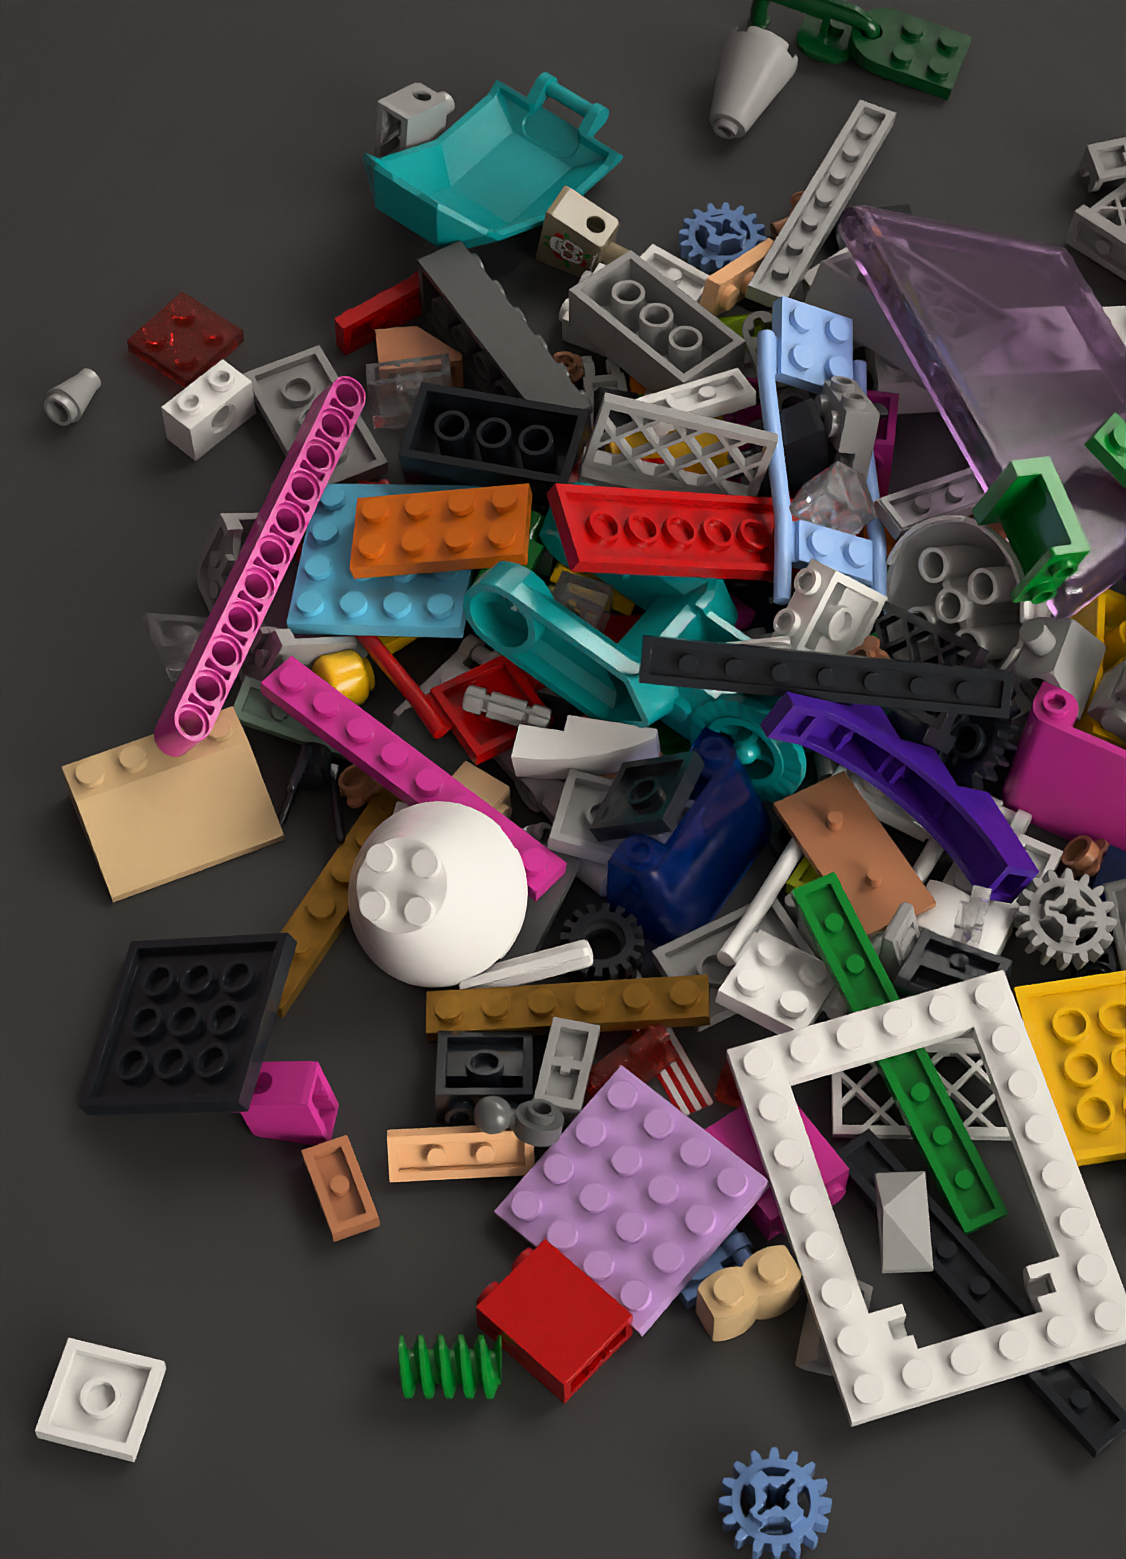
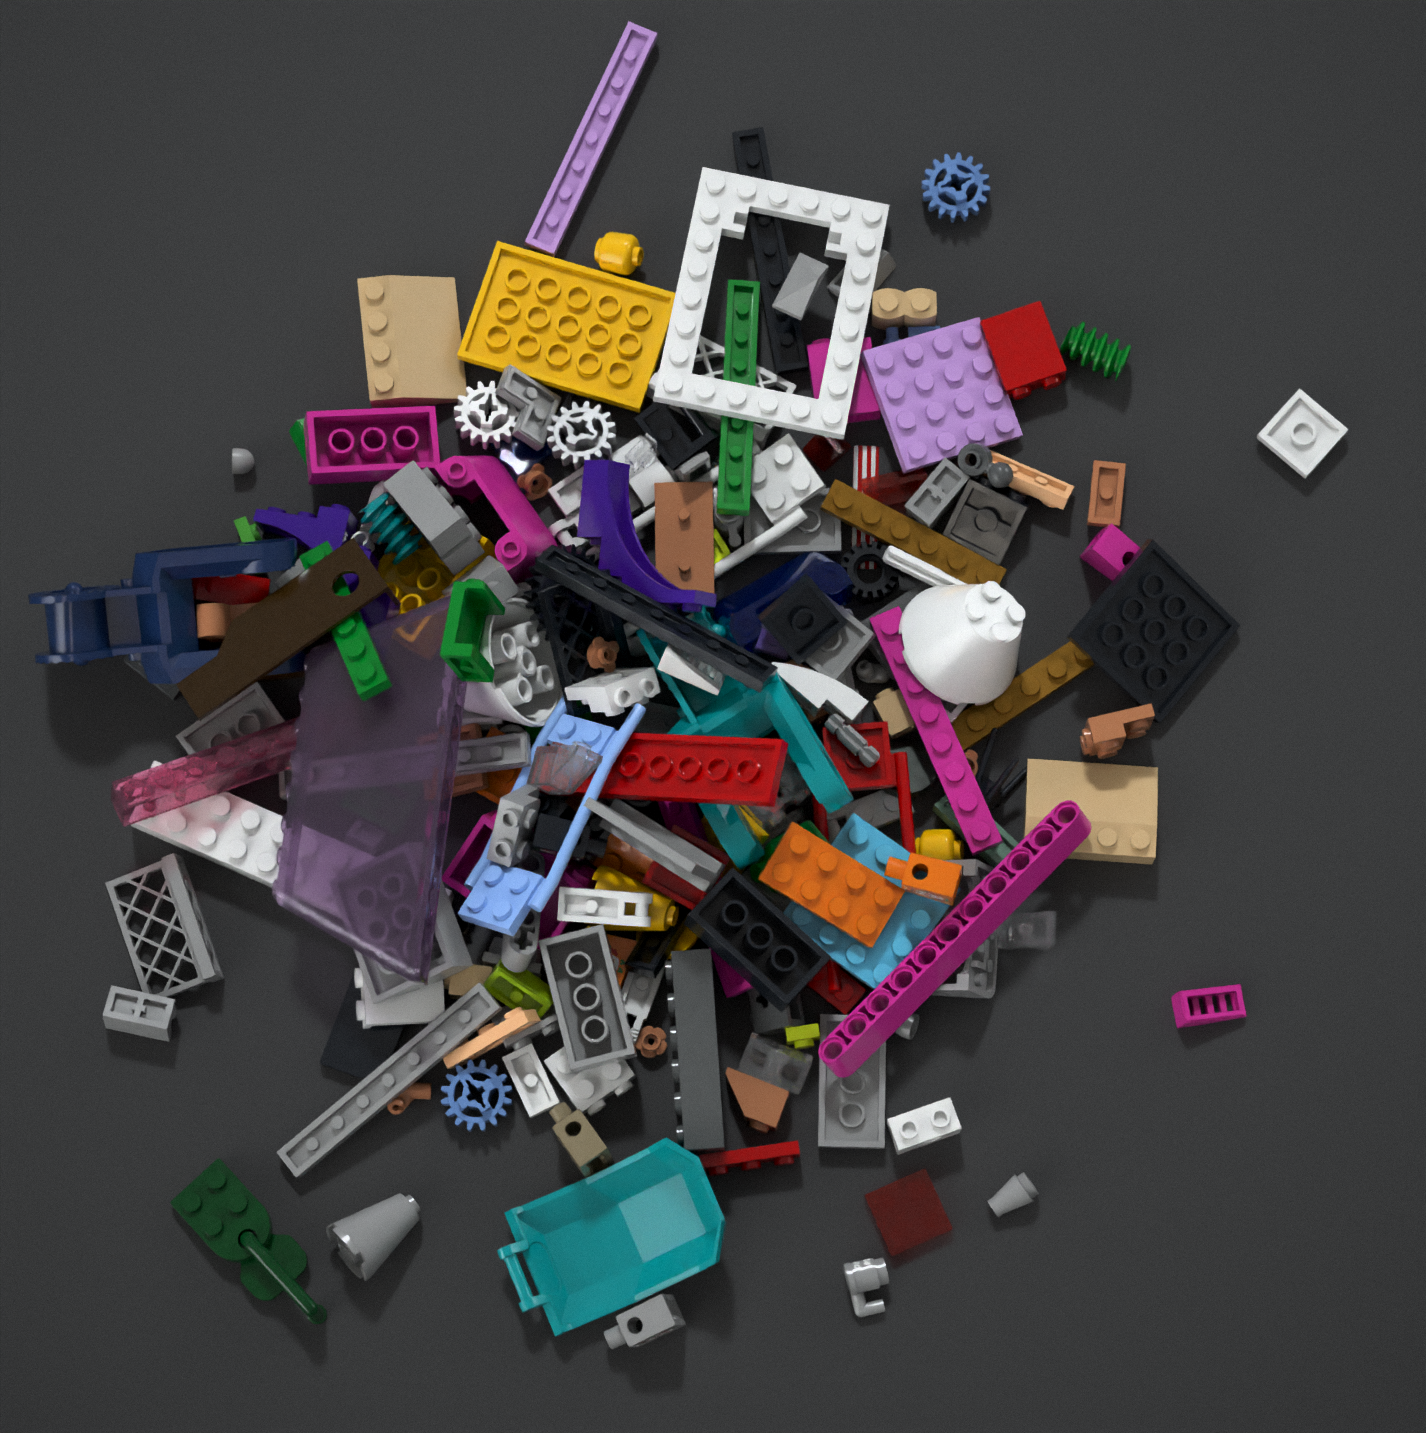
camera: 150 degrees left, 20 degrees up
(187, 891) = (1107, 732): none -> nougat plate
(198, 257) = (864, 1277): none -> light grey piece
(326, 581) = (941, 879): none -> orange torso
(389, 435) = (802, 1036): none -> neon yellow plate

